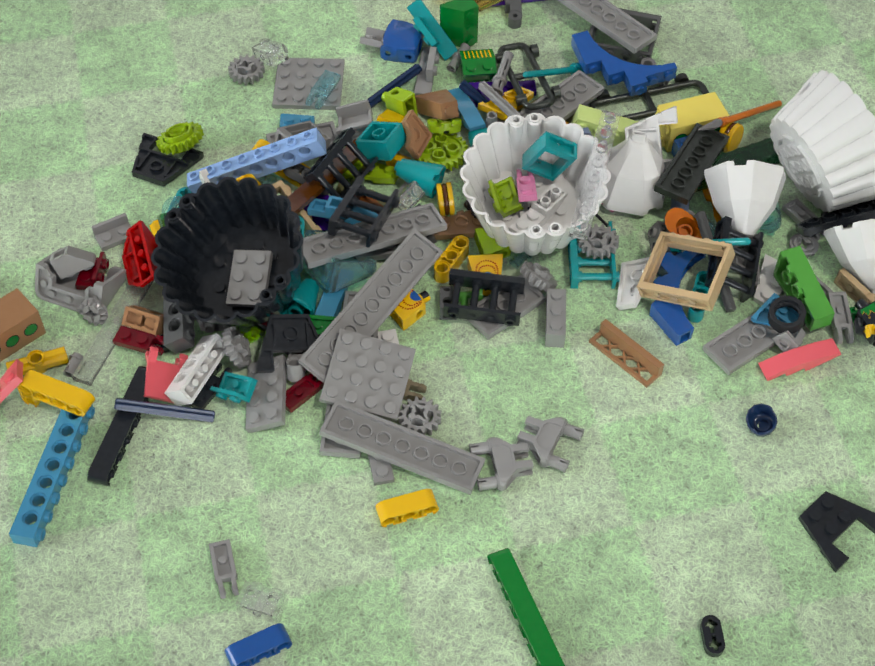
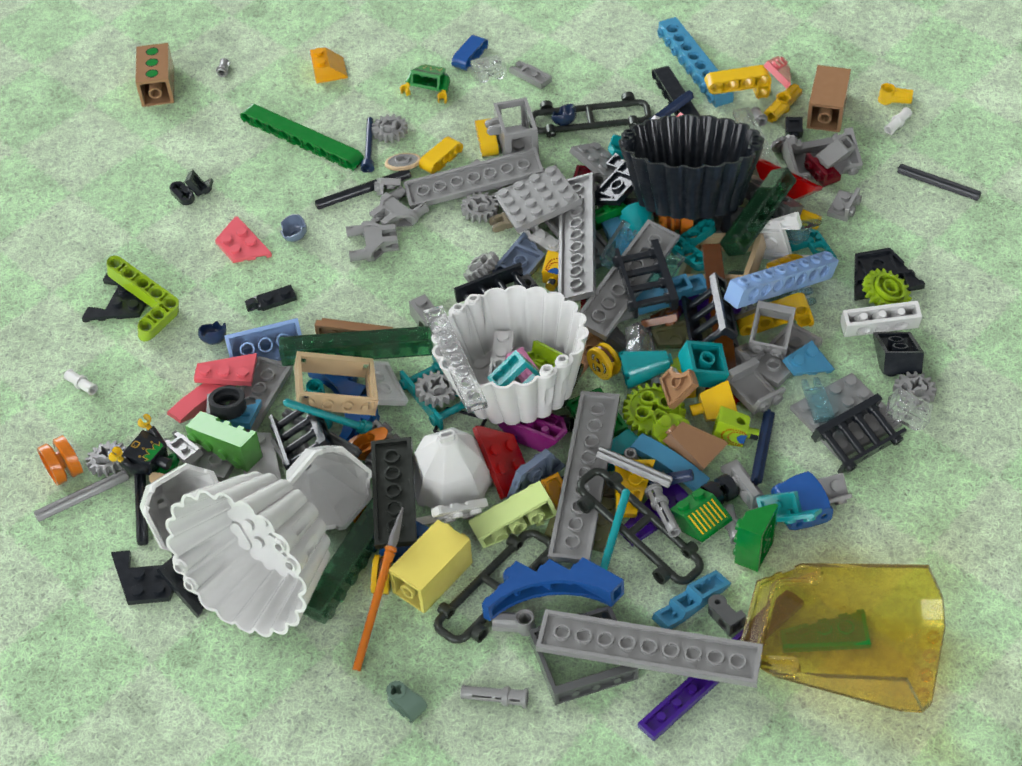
camera: 150 degrees right, 5 degrees down
(18, 211) = (939, 182): none -> black axle
(64, 329) = (794, 126): none -> black bracket
(212, 120) = (881, 318): none -> white brick
(224, 98) = (898, 353): none -> black slope
(248, 471) = (565, 116): none -> dark blue hair
(252, 503) = (628, 100): none -> pearl dark grey bar
(318, 56) = (856, 415): none -> black fence
(321, 472) = (516, 137): none -> light grey piece
(338, 626) = (429, 78): none -> green torso
(342, 502) = (488, 143): none -> yellow beam
(422, 576) = (389, 128): none -> light grey gear
(434, 337) = (524, 252): none -> sand blue wing
(448, 75) = (723, 488): none -> black wheel
(454, 538) = (402, 161): none -> wheel
(476, 330) = (481, 266): none -> light grey gear
(489, 497) = (389, 183): none -> light grey bracket
(489, 546) = (367, 163): none -> dark blue piece
(514, 518) = (357, 190): none -> black axle
(527, 32) = (691, 601): none -> dark azure slope
(617, 494) = (293, 225): none -> sand blue hair
(644, 307) = (365, 344): none -> clear green brick
(680, 524) = (240, 242): none -> coral wing
(683, 434) = (271, 299): none -> black hinge
(689, 39) = (505, 696): none -> light grey pin
(689, 628) = (197, 185): none -> black bracket
(716, 384) = (262, 340): none -> light blue slope
(757, 66) = (405, 700): none -> sand green piece
(764, 360) = (227, 371): none -> coral wing
(799, 478) = (147, 291): none -> lime beam

